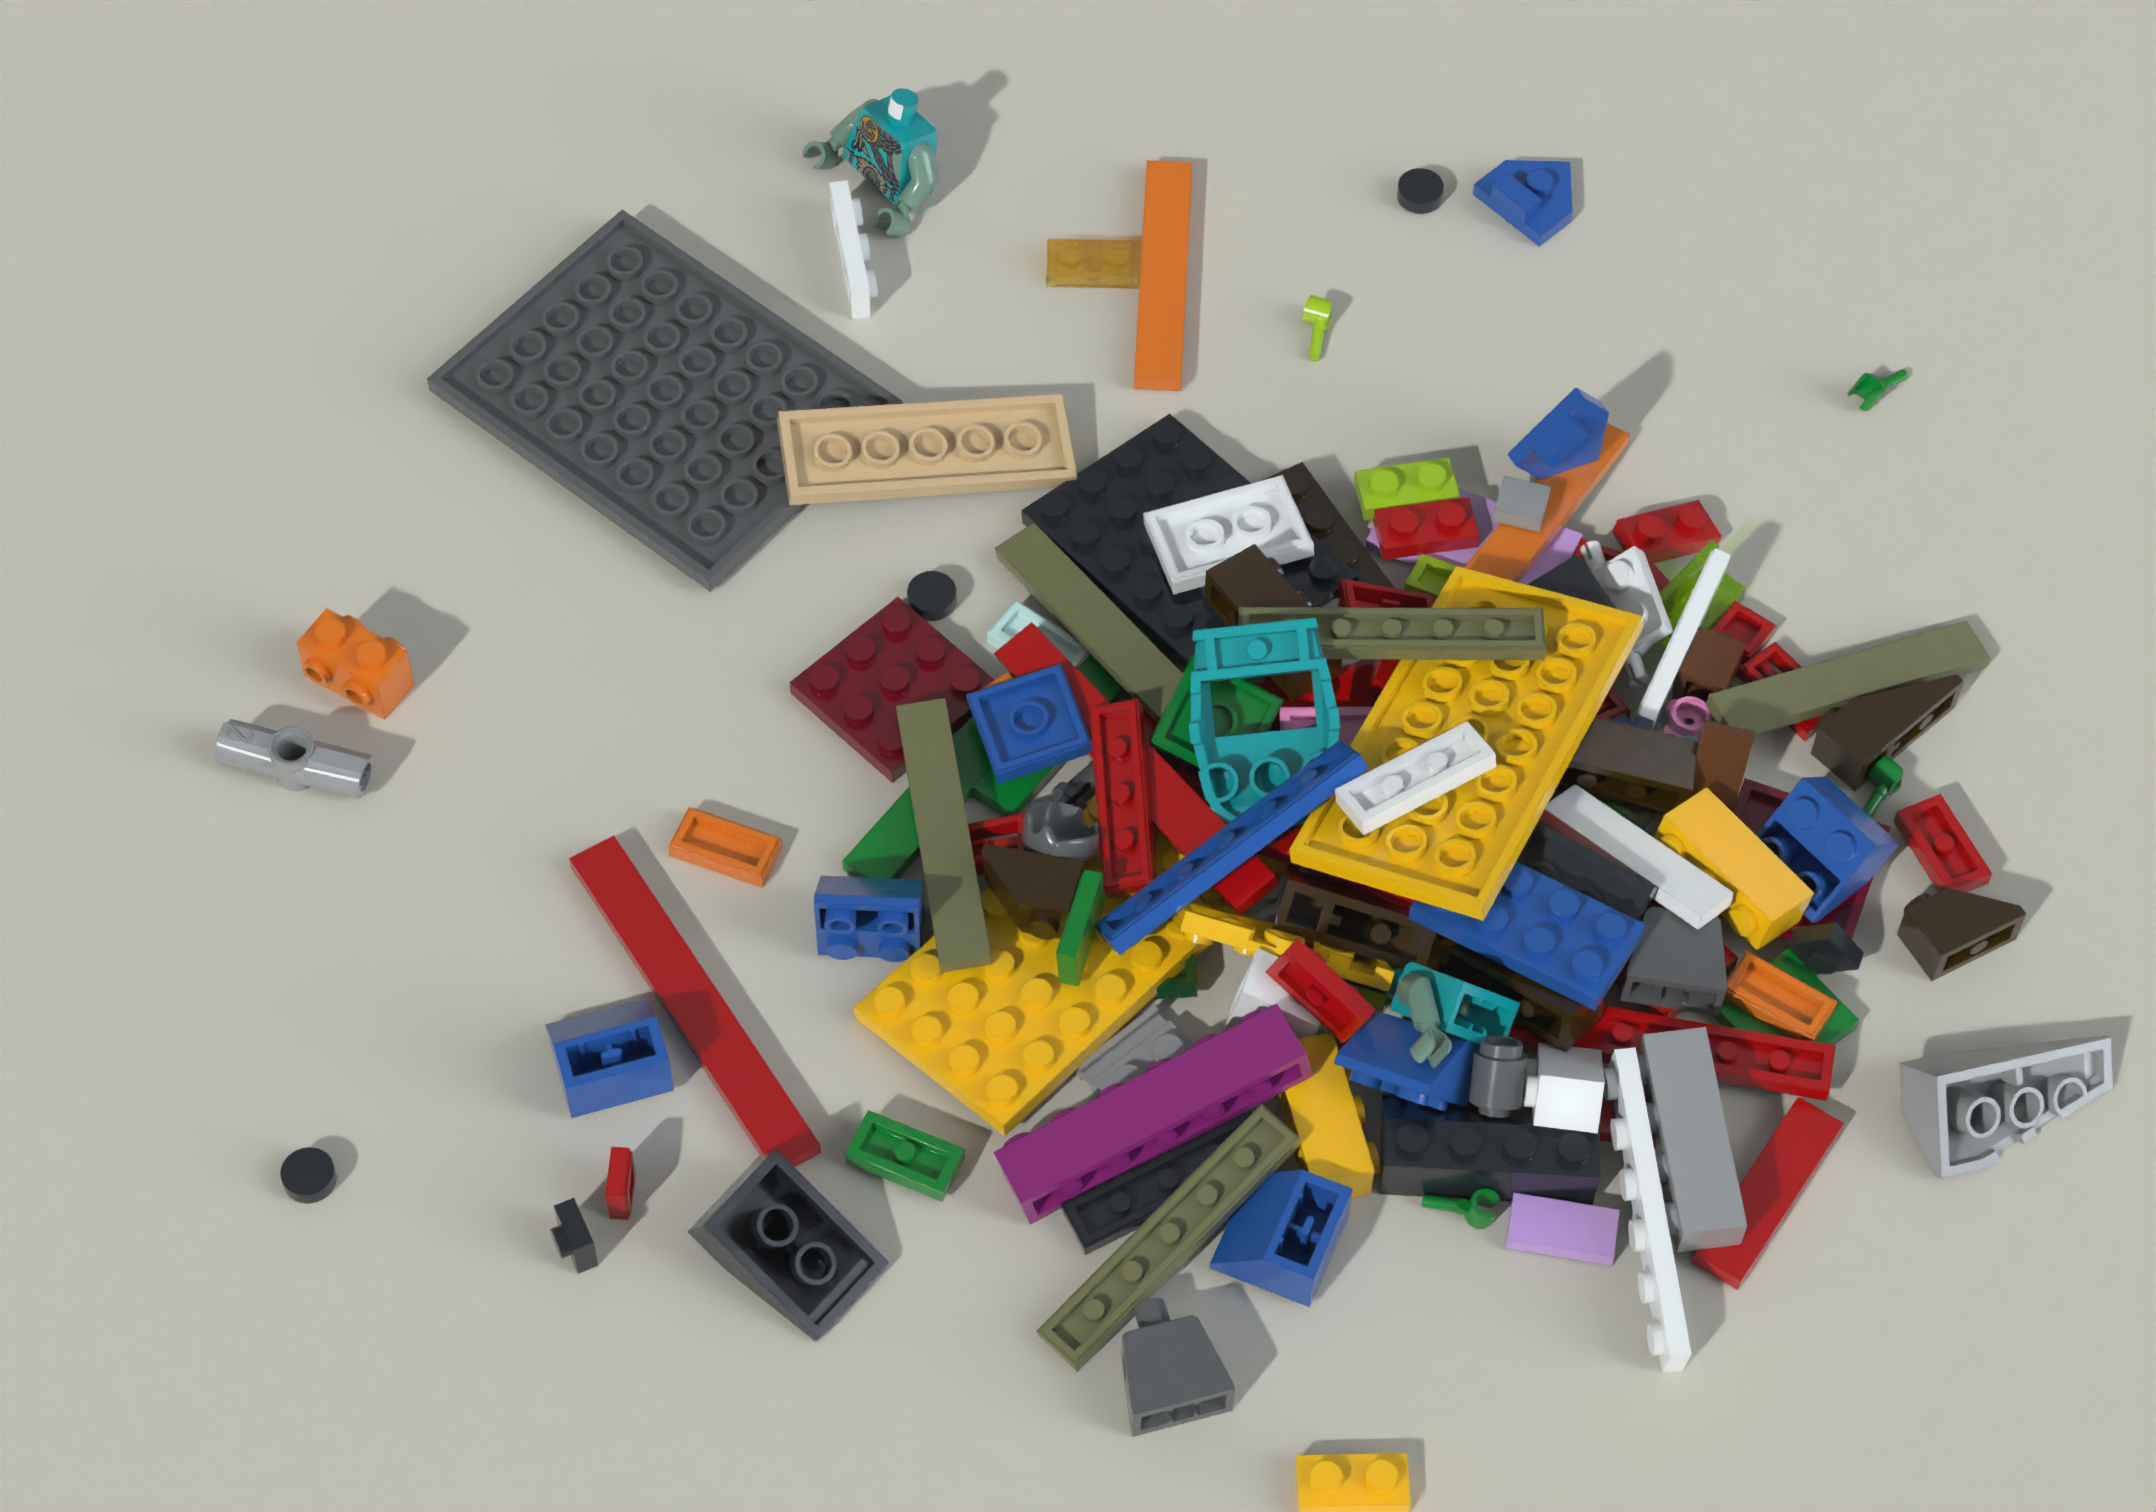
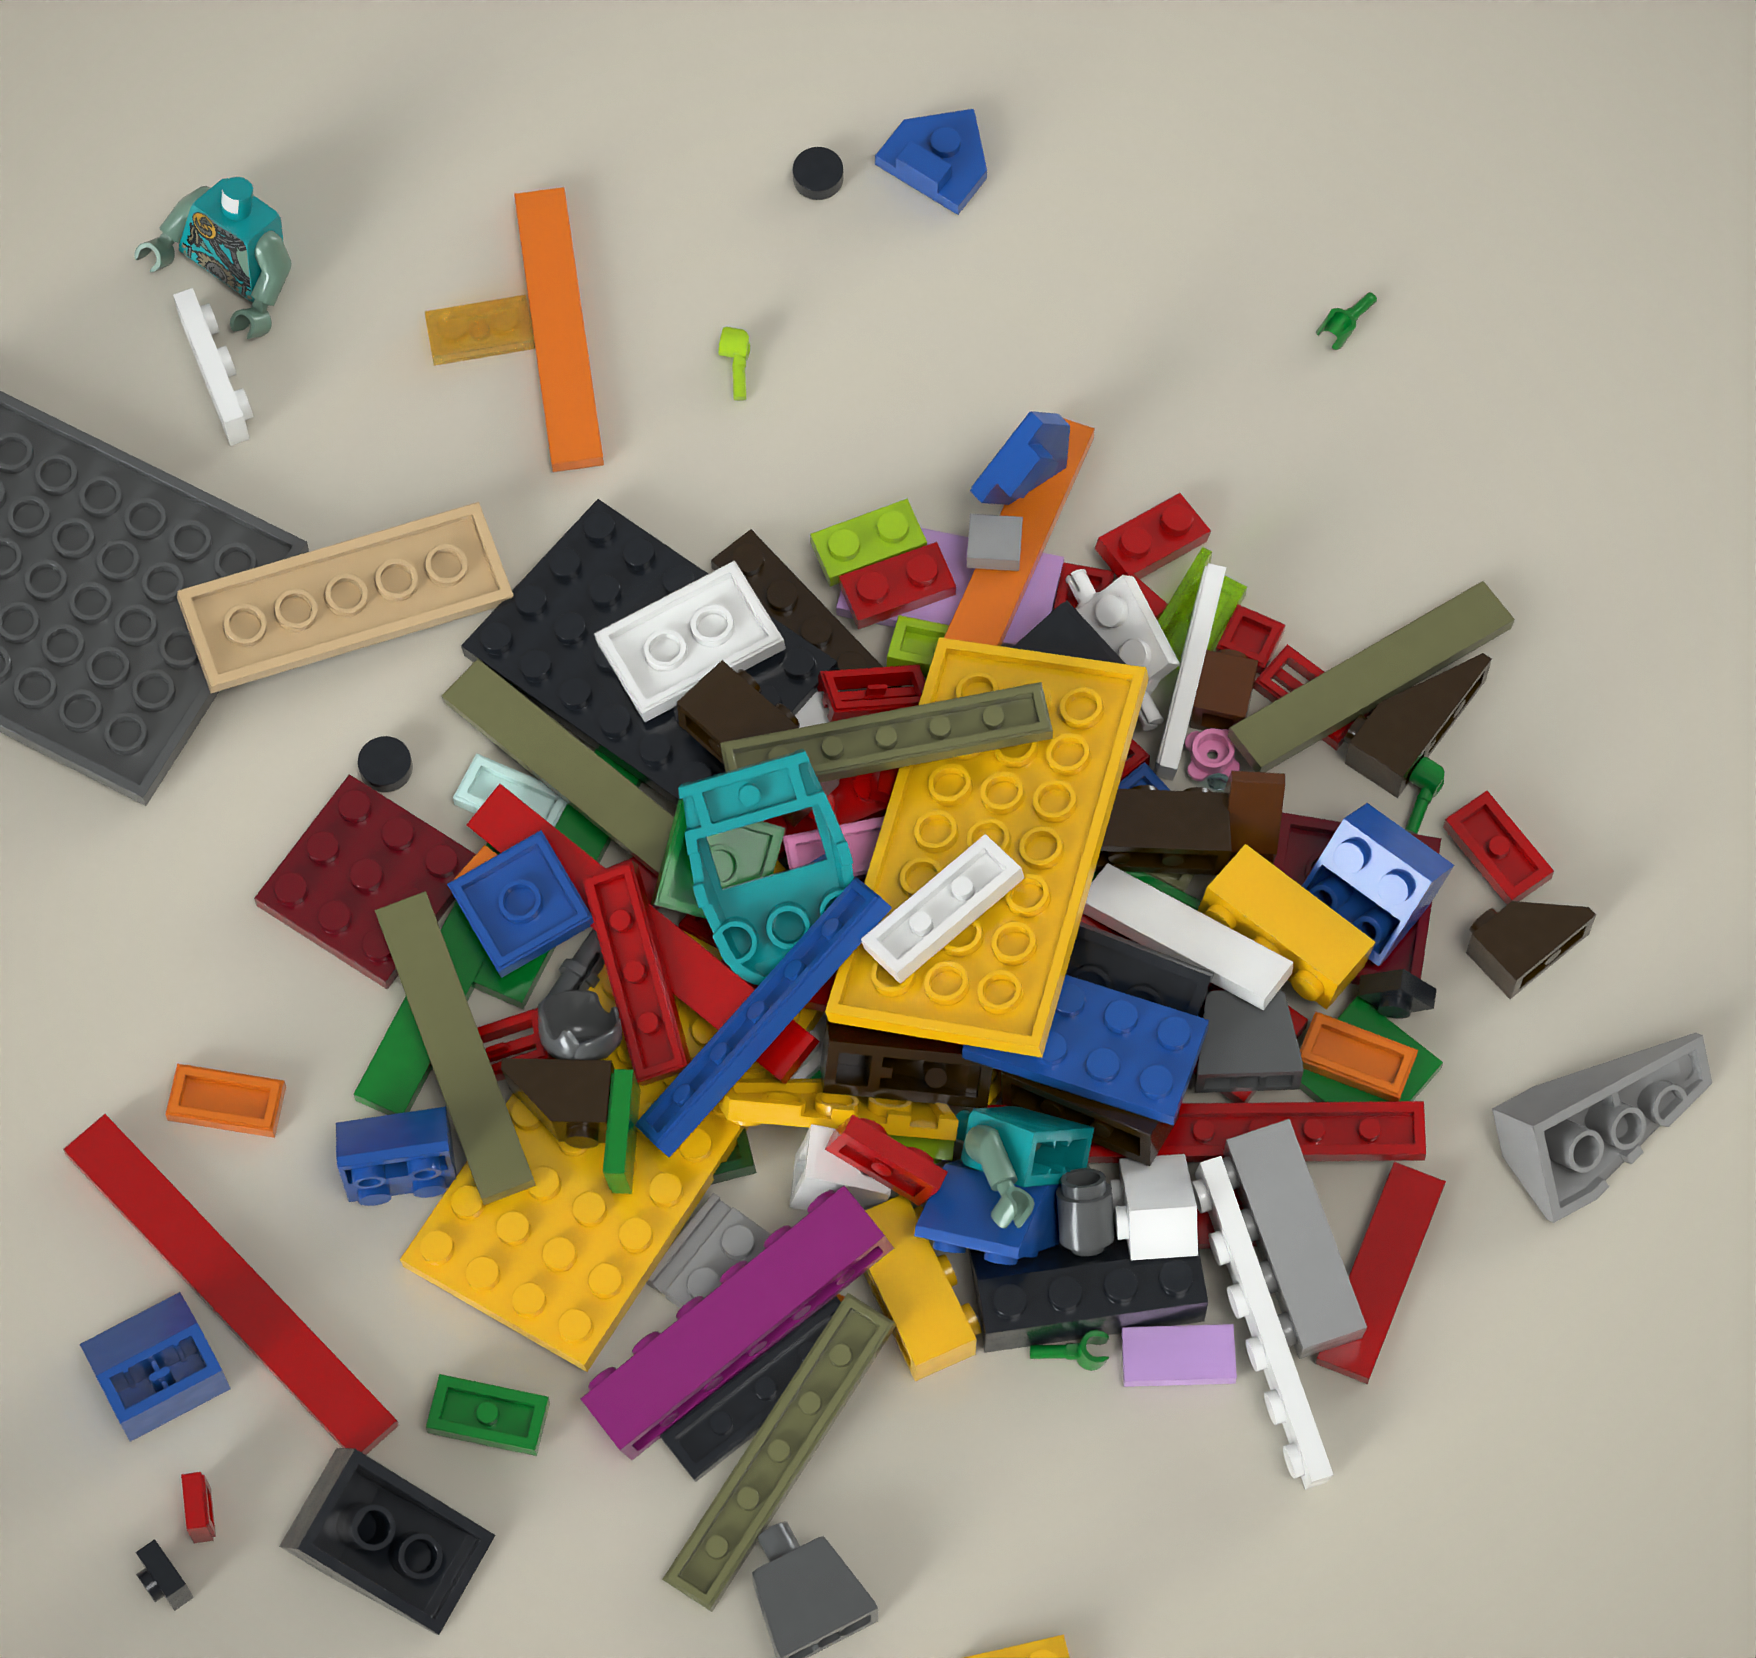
camera: 10 degrees left, 10 degrees up
(1285, 1234) = (896, 1425): blue slope -> none

